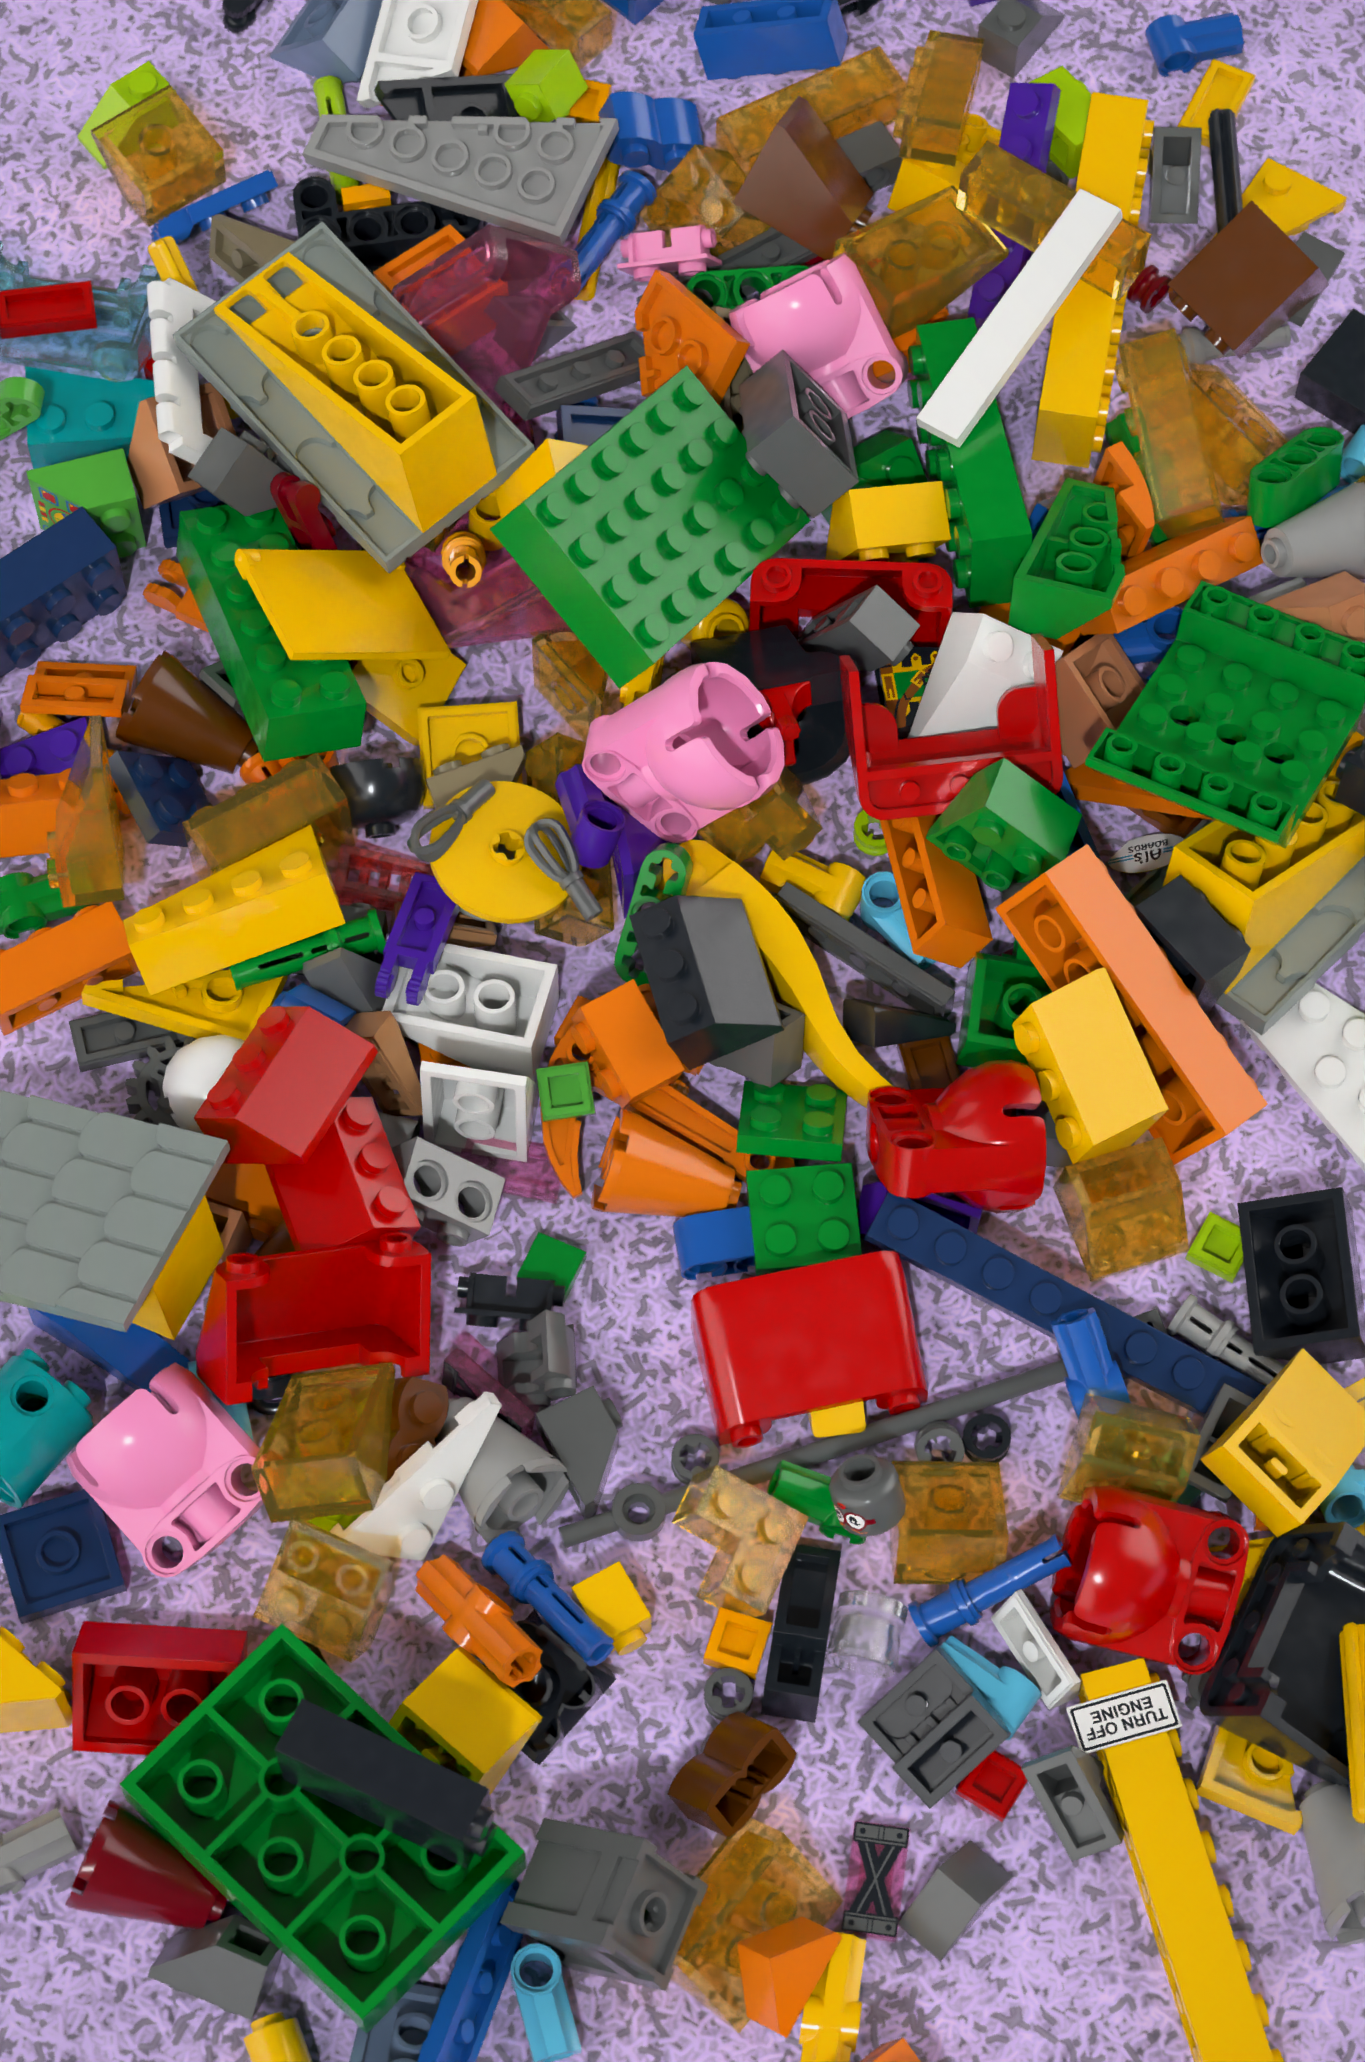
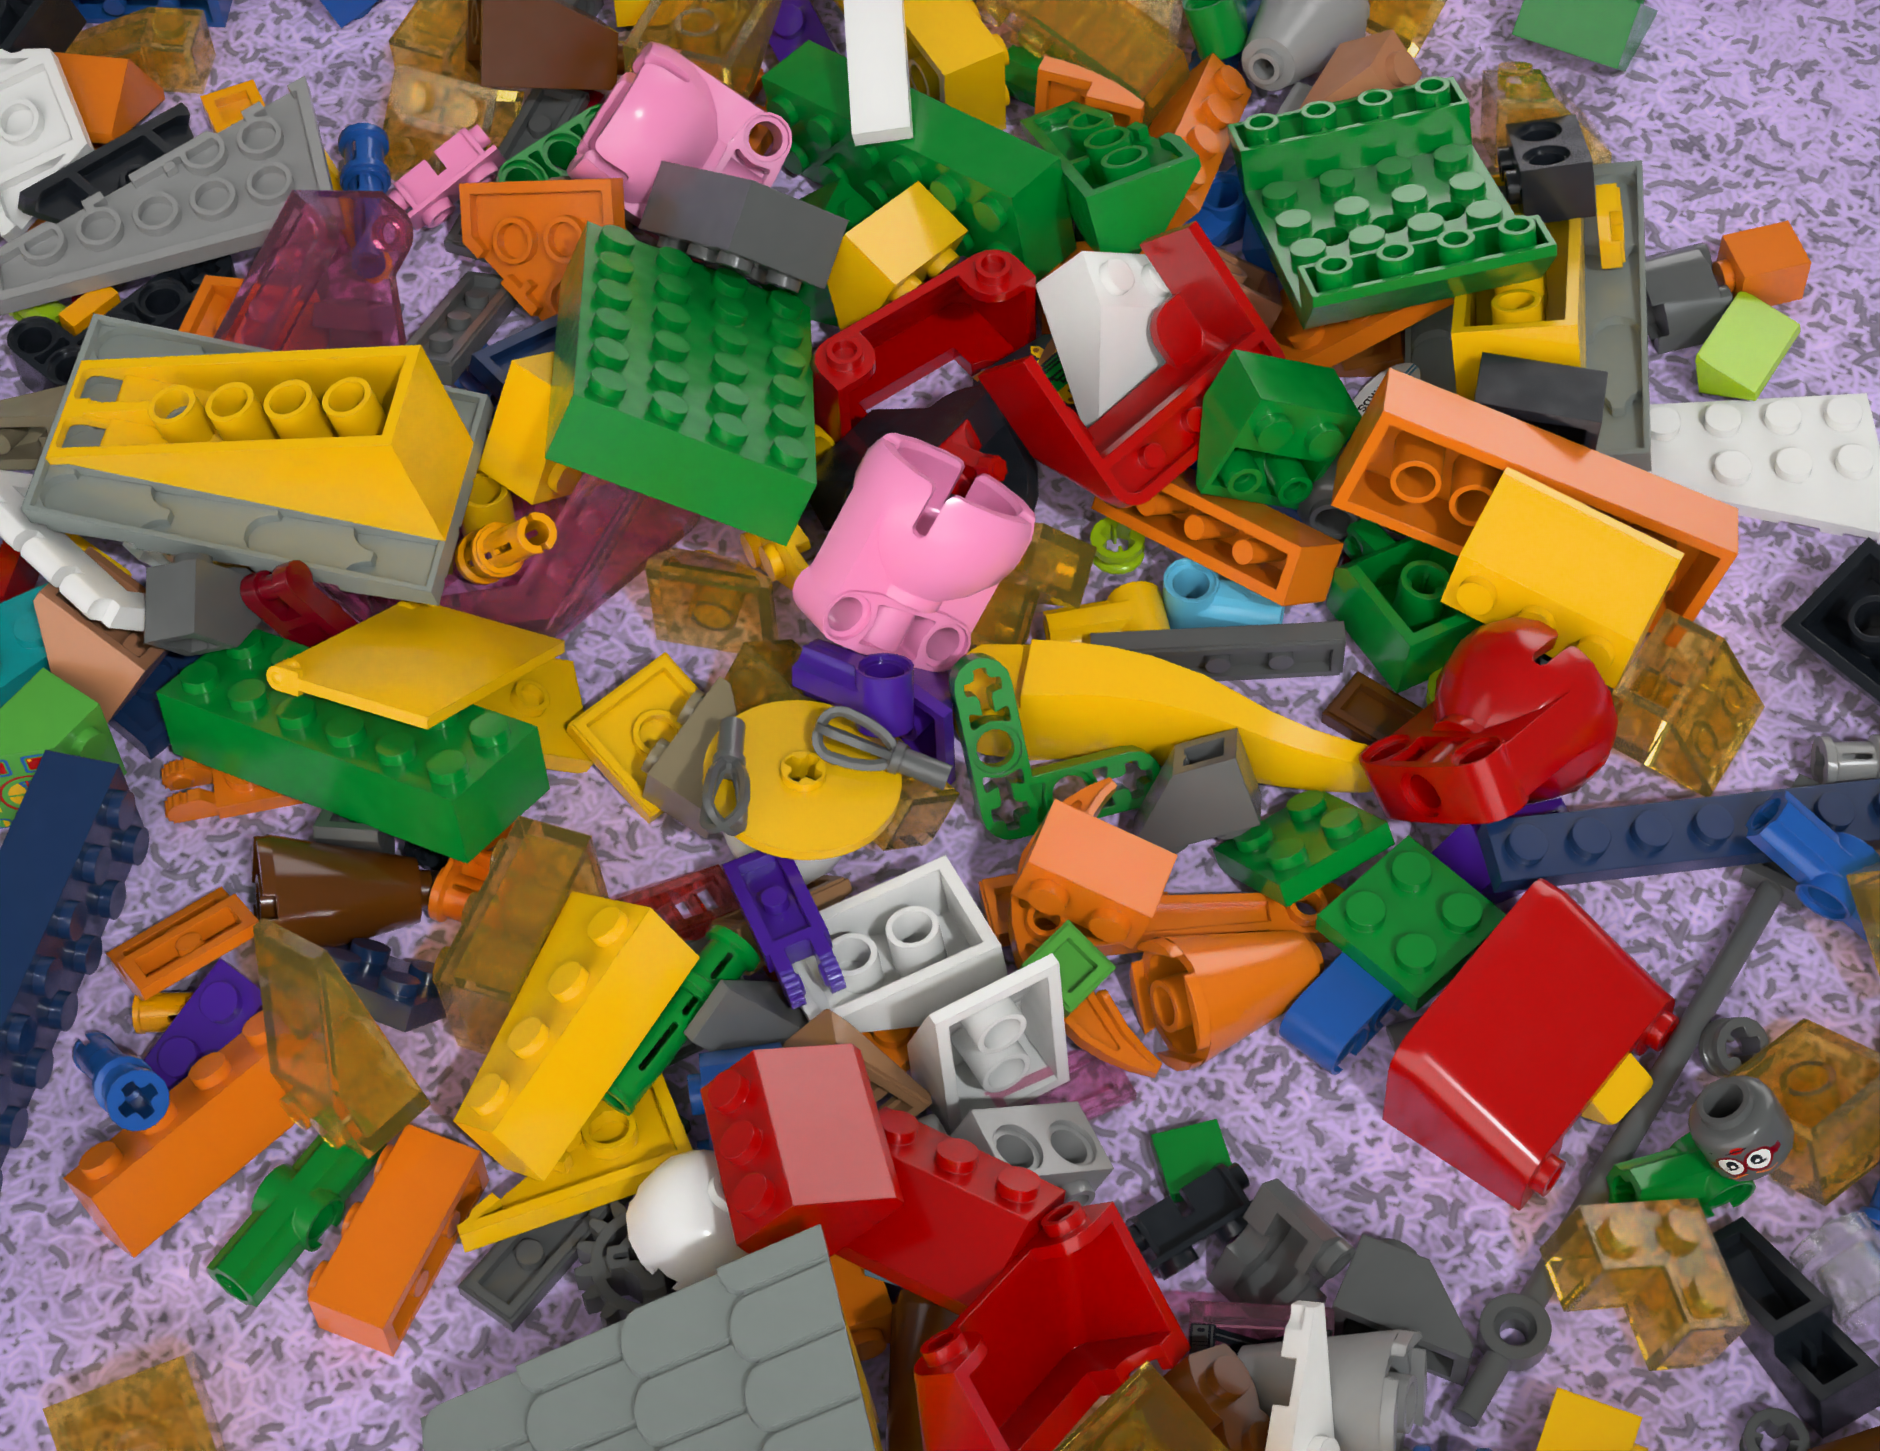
camera: 35 degrees left, 10 degrees down
(380, 793) = (615, 817): black cylinder -> none
(546, 85) = (194, 100): lime brick -> none
(651, 130) = (342, 84): blue brick -> none
(692, 1444) = (1500, 1255): dark grey bush -> none
(706, 976) = (1116, 754): black slope -> none
(737, 1642) = (1734, 1384): light orange plate -> none
(865, 627) = (953, 352): dark grey slope -> none
(888, 1025) = (1314, 689): black slope -> none
(981, 1424) = (1777, 994): black bush -> none
(1218, 1248) = (1790, 685): lime tile -> none

